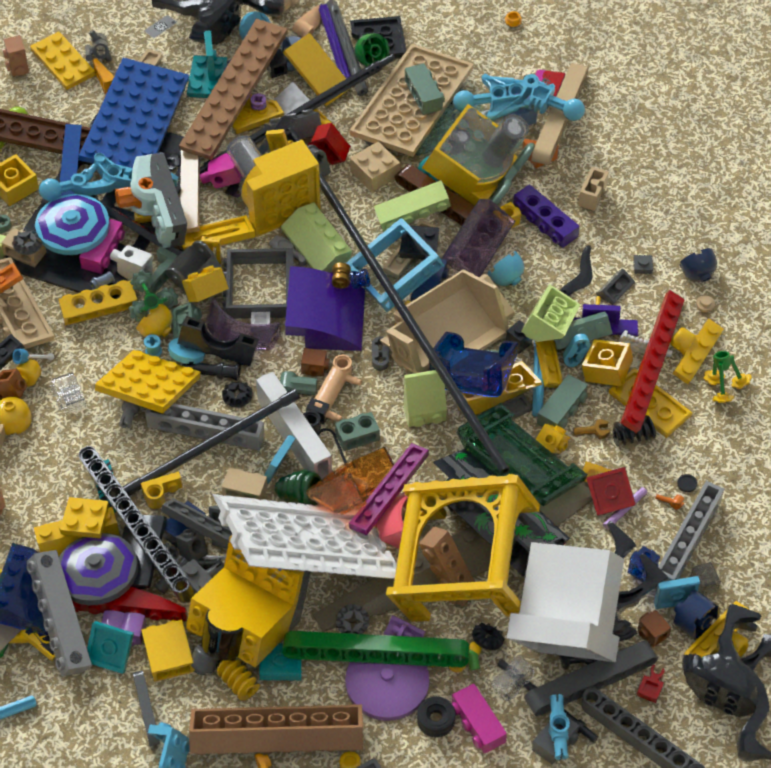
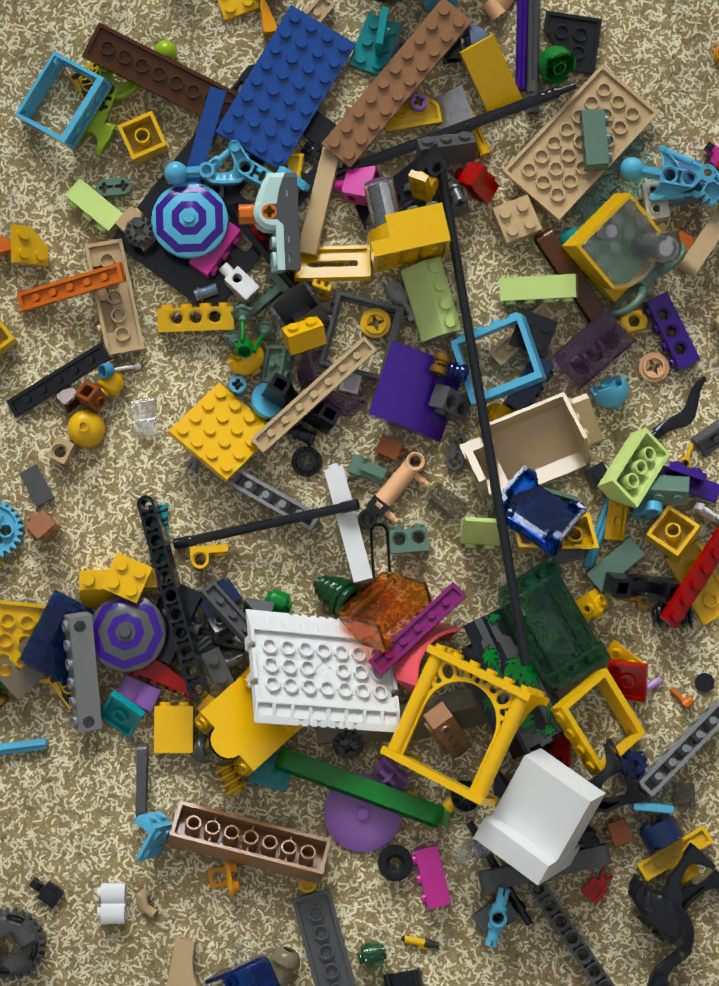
camera: 15 degrees right, 30 degrees up
(227, 327) = (313, 394): none -> tan plate
(244, 484) = (286, 572): tan brick -> none
(272, 265) = (367, 319): none -> yellow gear
(279, 458) = (325, 557): medium azure tile -> none
(360, 308) = (449, 403): none -> dark grey brick
(382, 396) = (446, 502): none -> clear smoke panel
(540, 241) = (661, 371): none -> light nougat gear
(577, 408) = (626, 585): none -> black arch
(601, 507) = (617, 703): none -> yellow window

